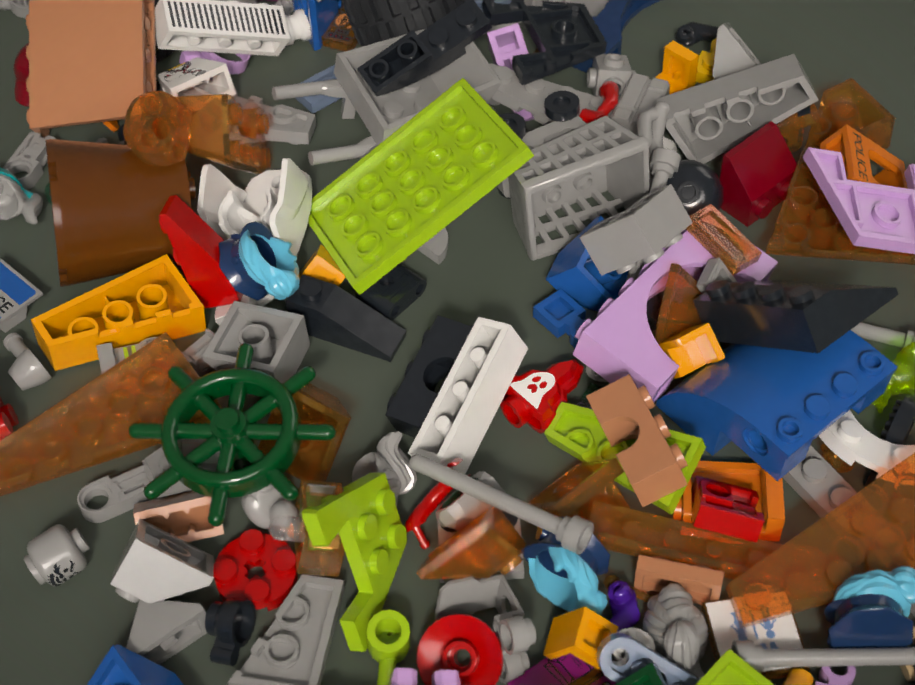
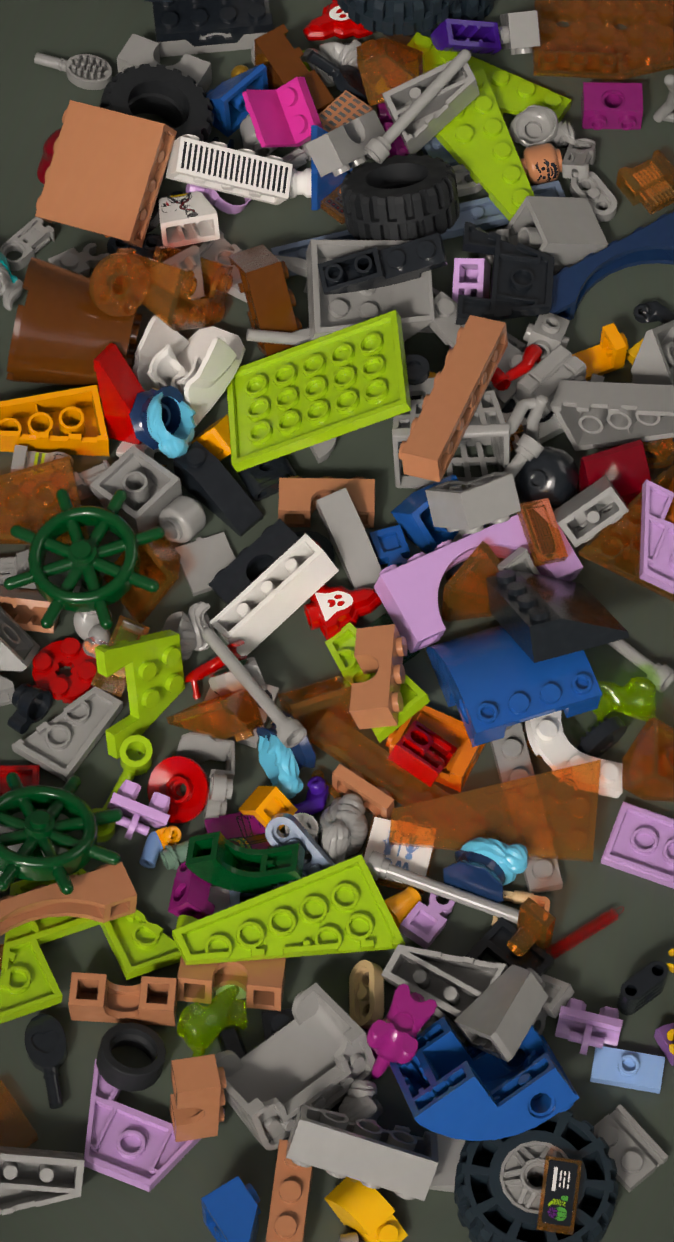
camera: 20 degrees right, 10 degrees up
(314, 117) = (266, 294): none -> reddish brown wedge
(326, 357) = (182, 519): none -> light grey head
(366, 398) = (203, 560): none -> light grey piece
(495, 281) = (300, 494): none -> nougat arch
(508, 302) = (349, 539): none -> light grey slope
(574, 132) = (453, 398): none -> nougat brick
(693, 348) = (463, 618): light orange panel -> none
(762, 201) = (590, 511): none -> light grey brick

